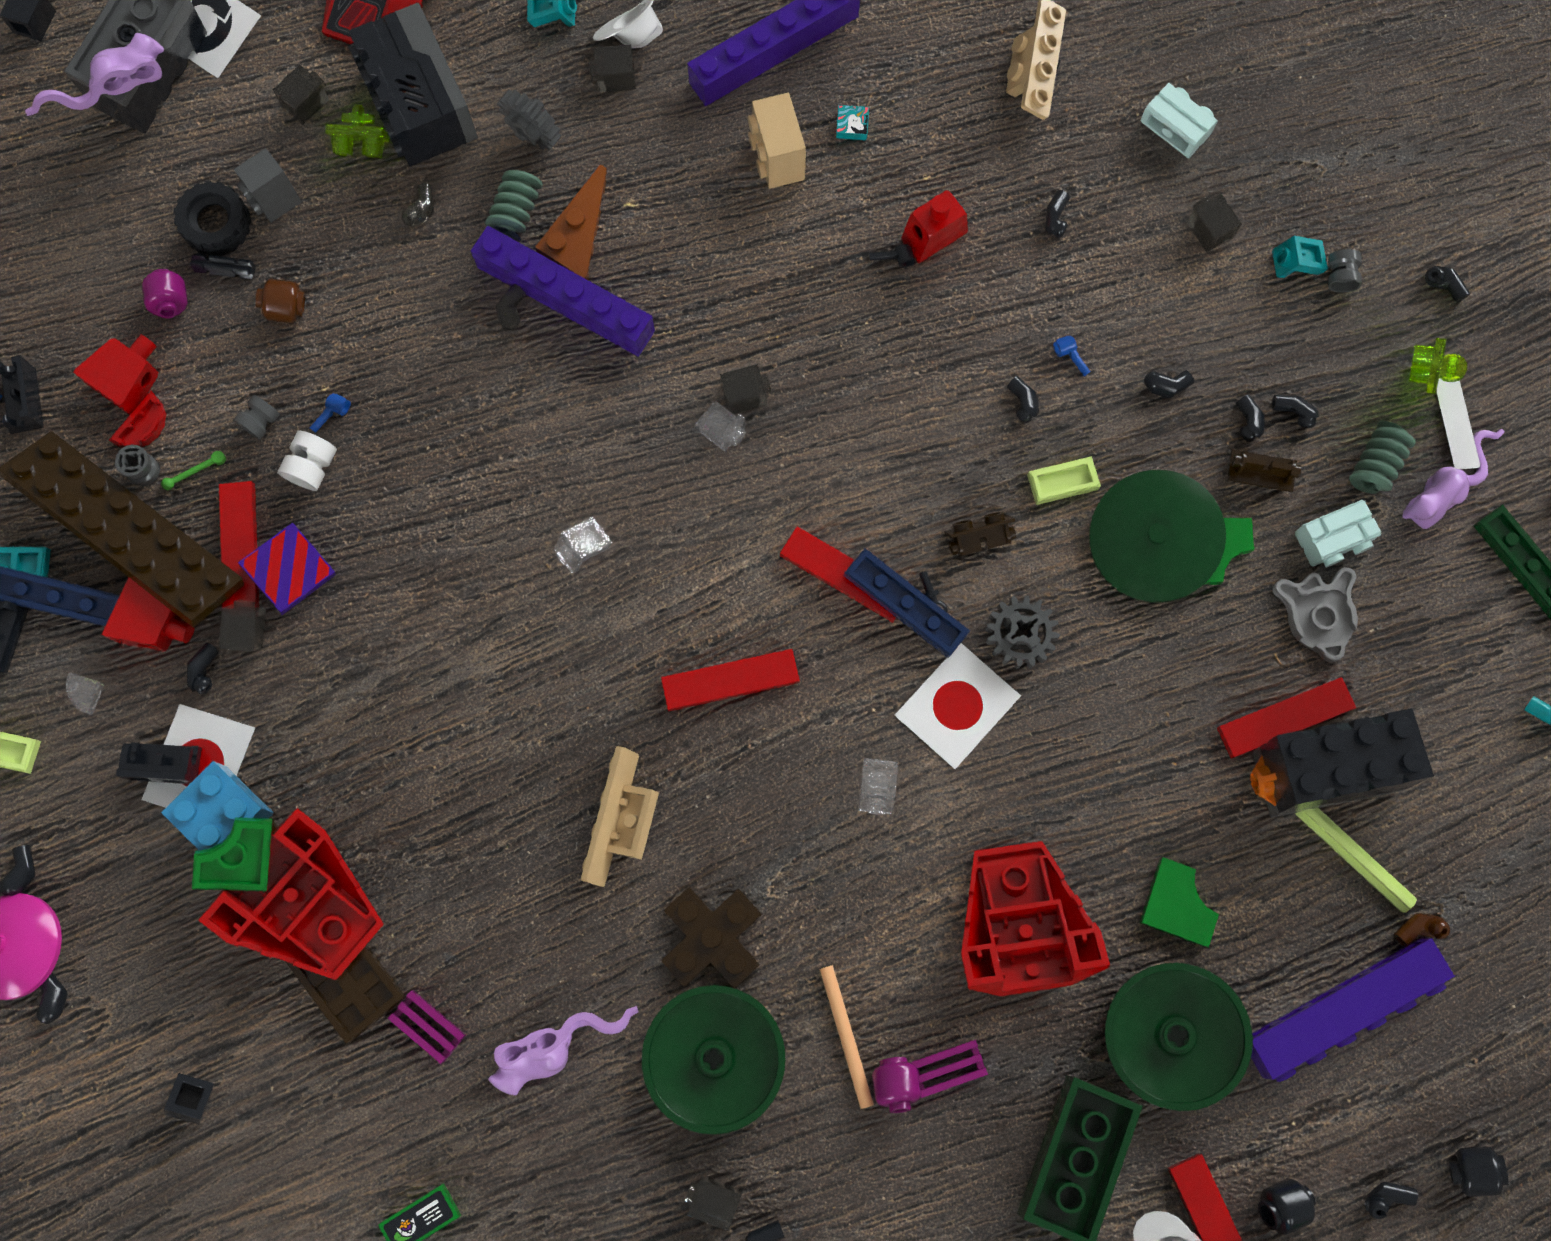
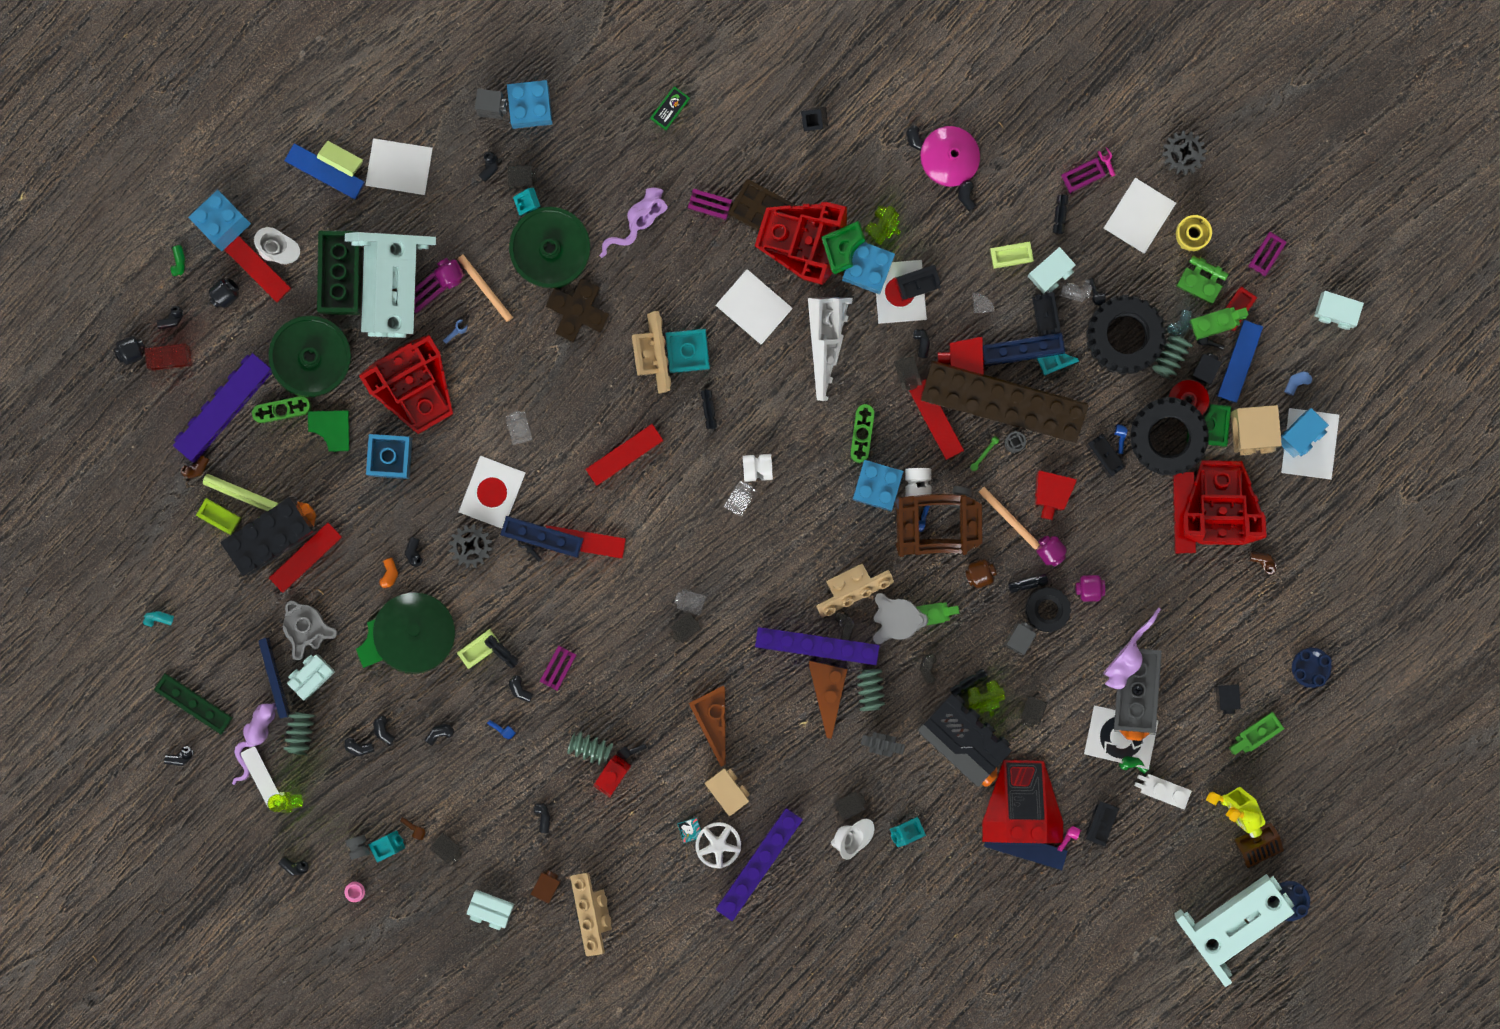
camera: 160 degrees right, 10 degrees up
(137, 223) = (1090, 588): none -> magenta head
(142, 425) = (1027, 468): red tile -> none
(156, 889) = (886, 226): none -> clear neon green hips
(204, 367) = (1009, 517): none -> light nougat bar
(287, 568) = (900, 417): tile -> none
(332, 756) = (826, 325): none -> white wedge
(336, 585) = (869, 419): none -> bright green beam
(340, 414) = (908, 525): none -> reddish brown wedge
(368, 480) = (877, 485): none -> dark azure brick
(373, 166) = (969, 682): none -> black axle
(384, 278) = (938, 612): none -> bright green hinge
(430, 283) = (898, 619): none -> light grey tile
(432, 831) = (754, 306): none -> white sticker
(475, 358) = (852, 587): none -> tan bracket
(534, 576) = (757, 467): none -> white wheel
(564, 802) = (687, 351): none -> teal tile
(571, 697) = (708, 407): none -> black axle
(720, 1154) = (526, 201): none -> teal bracket
(758, 260) = (711, 717): none -> dark orange wing
(821, 88) = (718, 845): none -> white wheel
(922, 982) = (455, 331): none -> medium blue hand
(951, 276) = (590, 748): none -> sand green piece
(968, 535) = (509, 602): dark brown hinge -> none
(975, 391) = (550, 683): none -> magenta tile
(1003, 1108) = (388, 281): none -> light aqua brick
(1033, 460) = (501, 651): none -> black axle
(1088, 119) = (546, 886): none -> reddish brown brick
(1103, 819) = (389, 456): none -> dark azure brick
(1116, 658) = (412, 554): none -> black arm
(1160, 639) = (391, 574): none -> orange arm
(1245, 263) = (418, 833): none -> reddish brown hand
(1263, 470) = (366, 700): dark brown hinge -> none
(1276, 963) = (265, 407): none -> bright green beam
(1368, 216) = (354, 891): none -> bright pink plate
(1395, 553) = (274, 678): none -> dark blue tile
(1405, 836) = (218, 516): none -> lime tile
(1416, 1132) = (168, 357): none -> clear red brick

